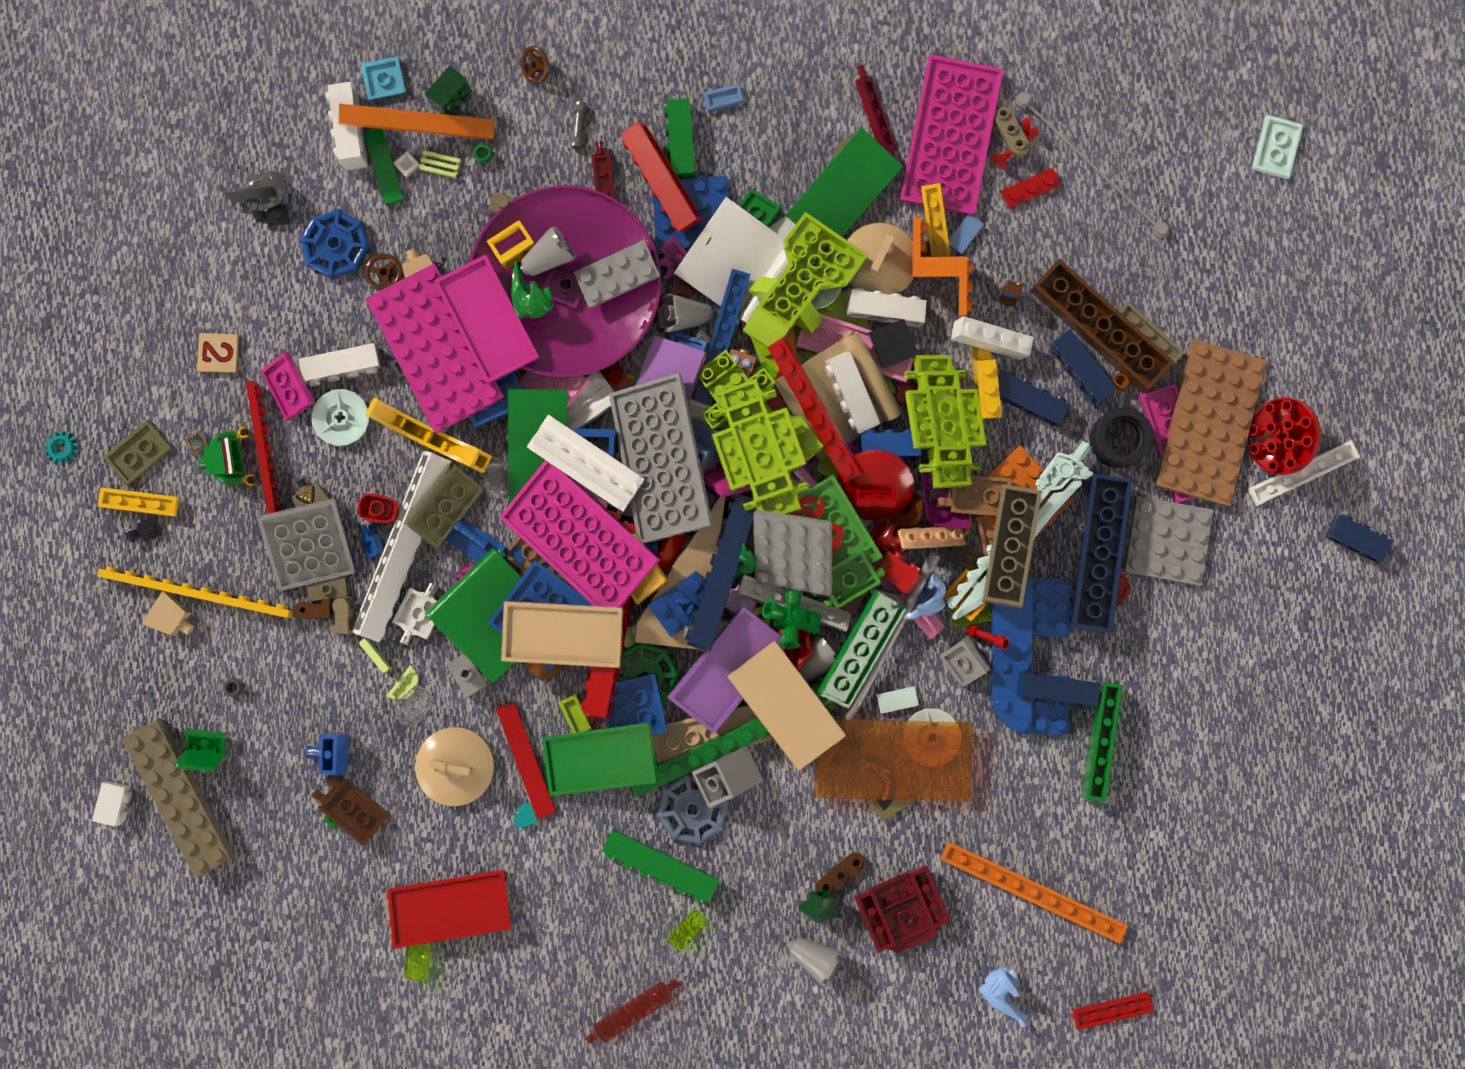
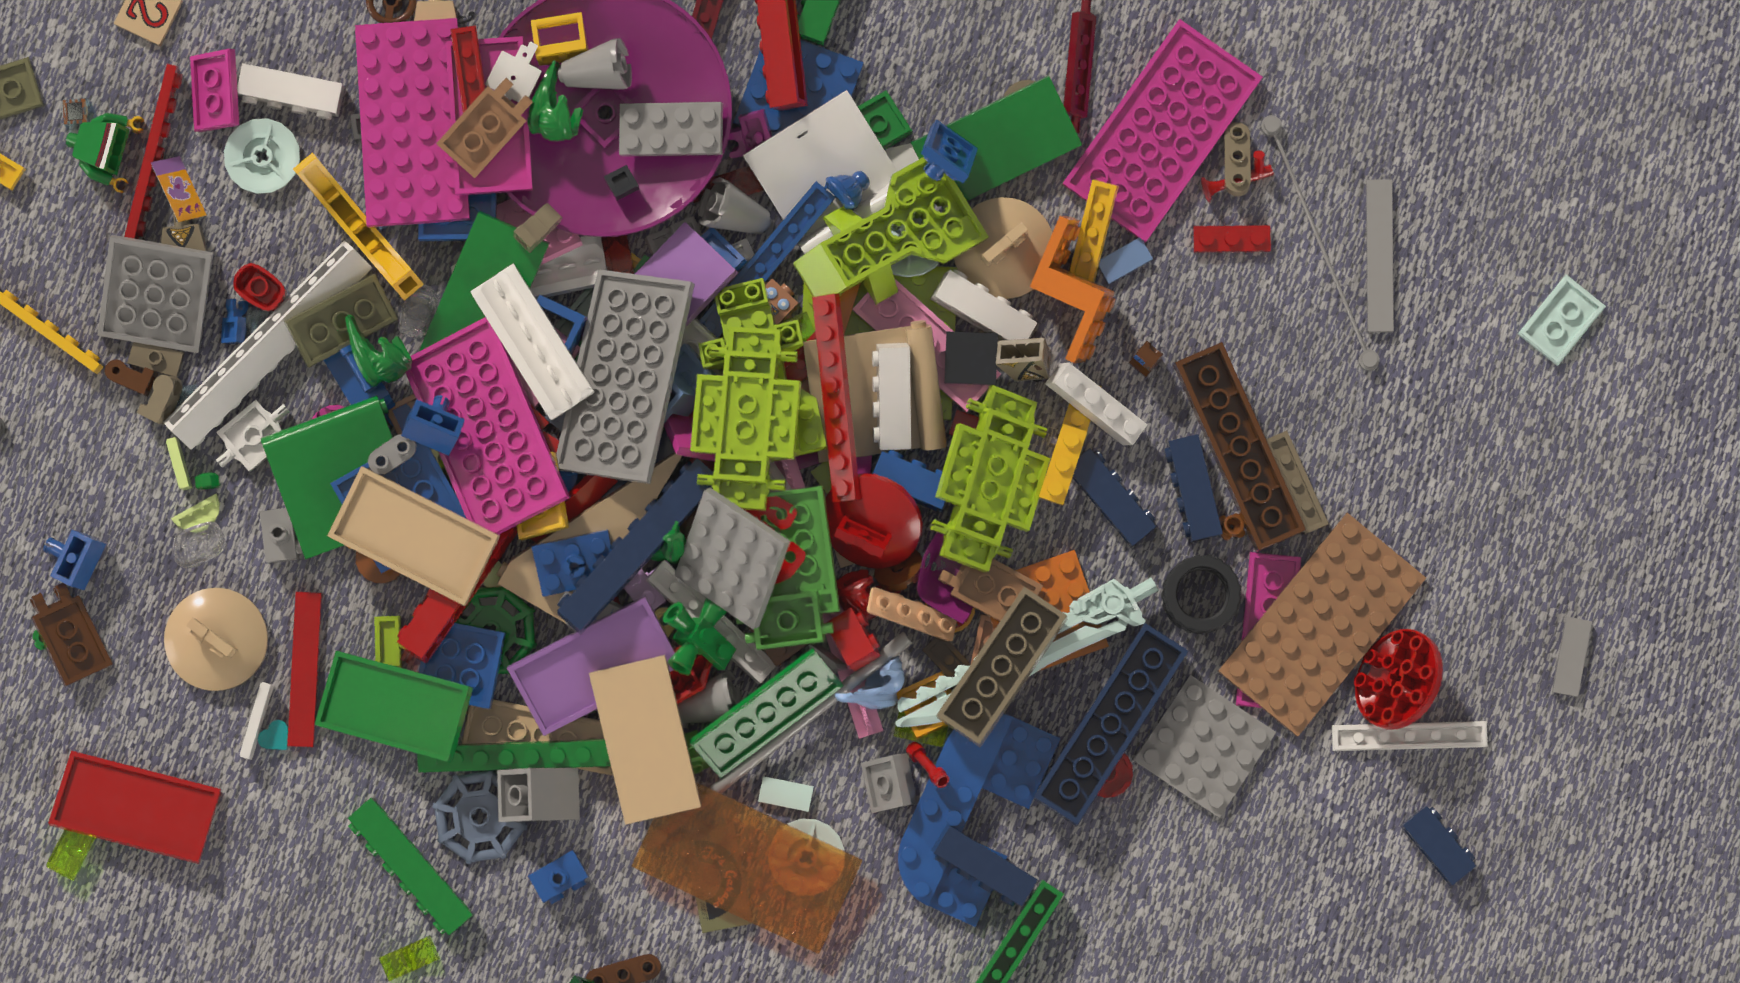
camera: 25 degrees right, 0 degrees up
(292, 465) = (178, 189): none -> sticker
(400, 659) = (207, 481): none -> green tile
(462, 298) = (468, 64): none -> red tile
(482, 527) = (377, 365): none -> green hair
(487, 328) = (484, 128): none -> medium nougat tile
(493, 276) = (519, 66): none -> white piece
(507, 811) = (256, 720): none -> white tile
(522, 584) = (392, 455): none -> light grey plate
(542, 551) = (433, 425): none -> blue brick
(554, 382) = (537, 227): none -> dark tan leg
(599, 326) = (621, 182): none -> black plate
(756, 264) = (848, 188): none -> blue hair
(767, 827) = (558, 877): none -> blue brick
(816, 209) = (947, 154): none -> blue plate
(929, 328) = (1024, 359): none -> dark tan torso
(1135, 156) = (1379, 256): none -> light grey tile
(1388, 371) = (1571, 656): none -> light grey tile

